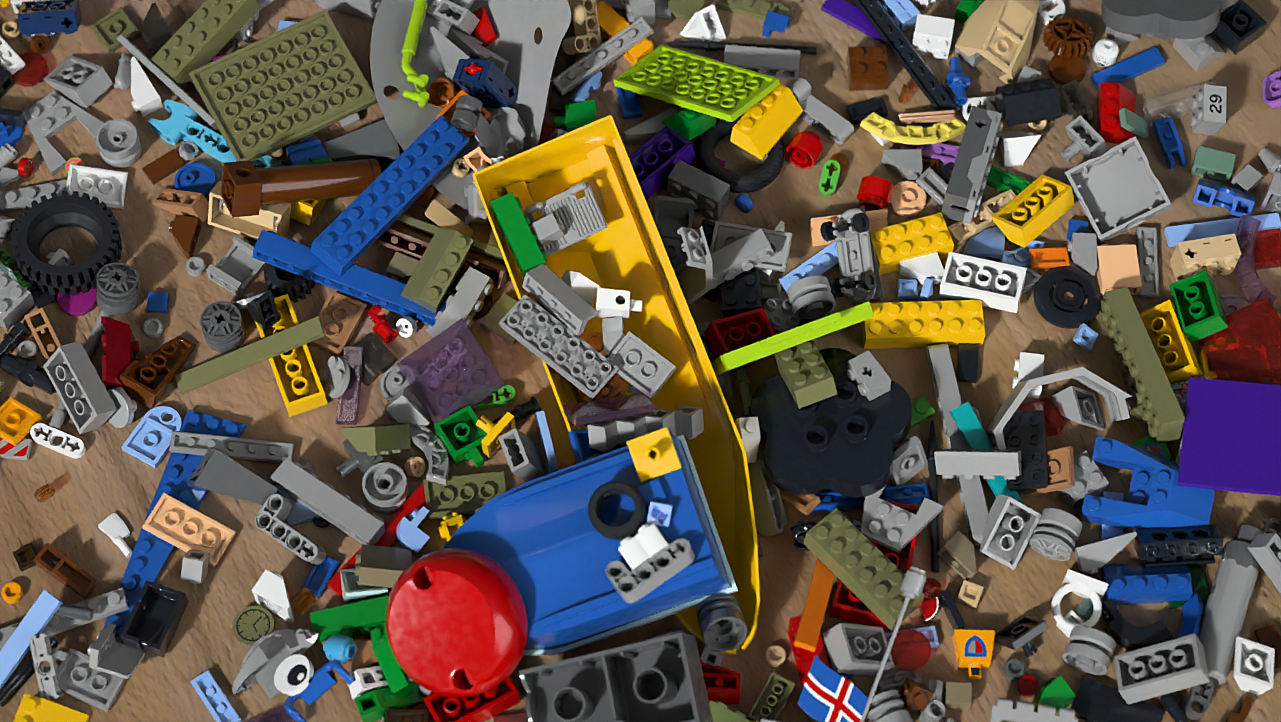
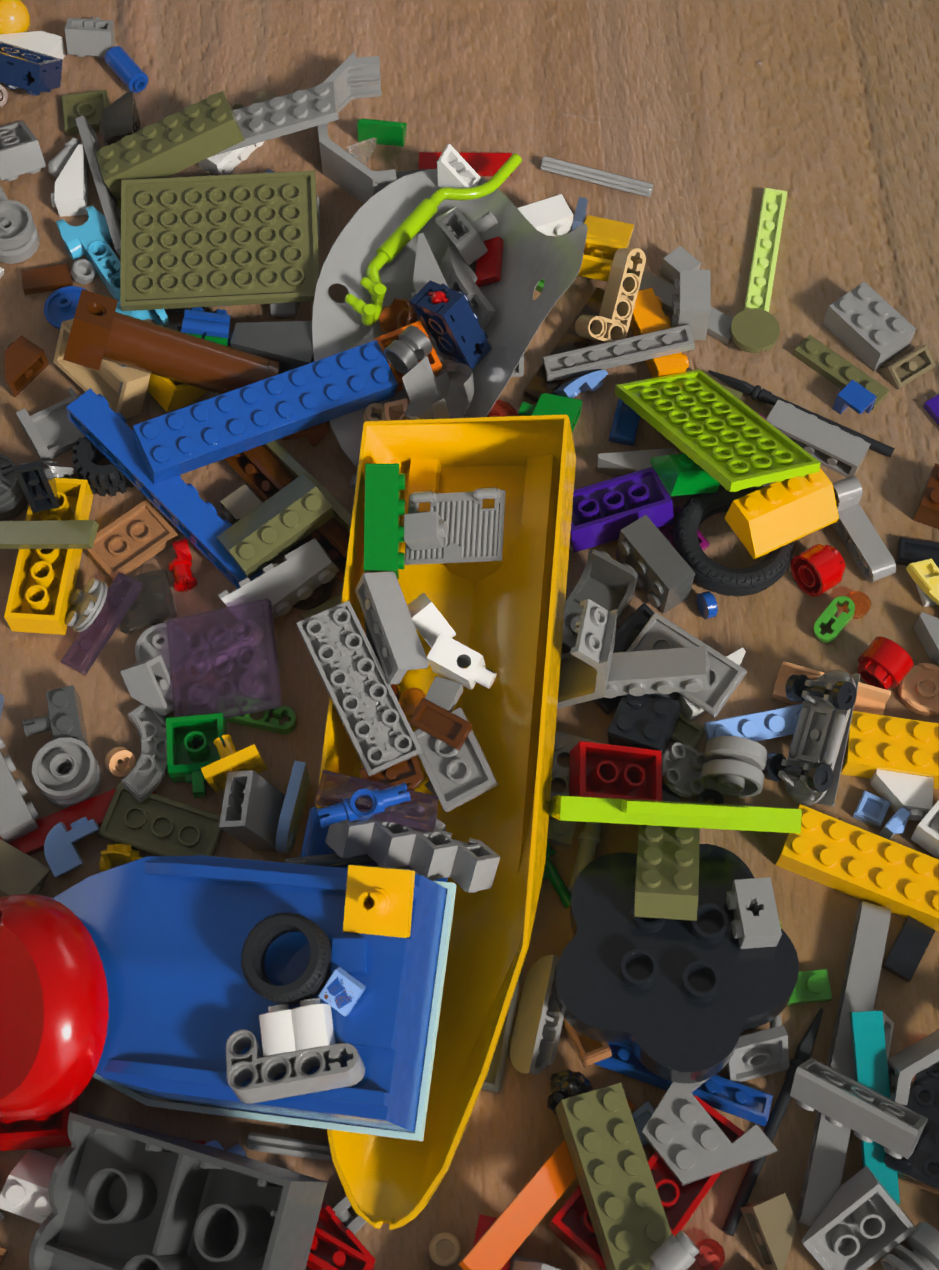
camera: 25 degrees right, 0 degrees up
(183, 203) = (38, 326): medium nougat slope -> none
(195, 266) = (13, 403): light grey tile -> none
(379, 439) = (88, 705): olive slope -> none
(406, 326) = (210, 580): white tile -> none
(447, 220) = (326, 472): tan piece -> none
(523, 411) = (287, 750): black pin -> none
(600, 418) = (378, 798): none -> blue pin
(622, 346) = (441, 724): none -> reddish brown tile
(704, 26) = (764, 367): white slope -> none
(721, 622) = (377, 1177): dark grey wheel -> none
(750, 435) = (549, 923): white slope -> none

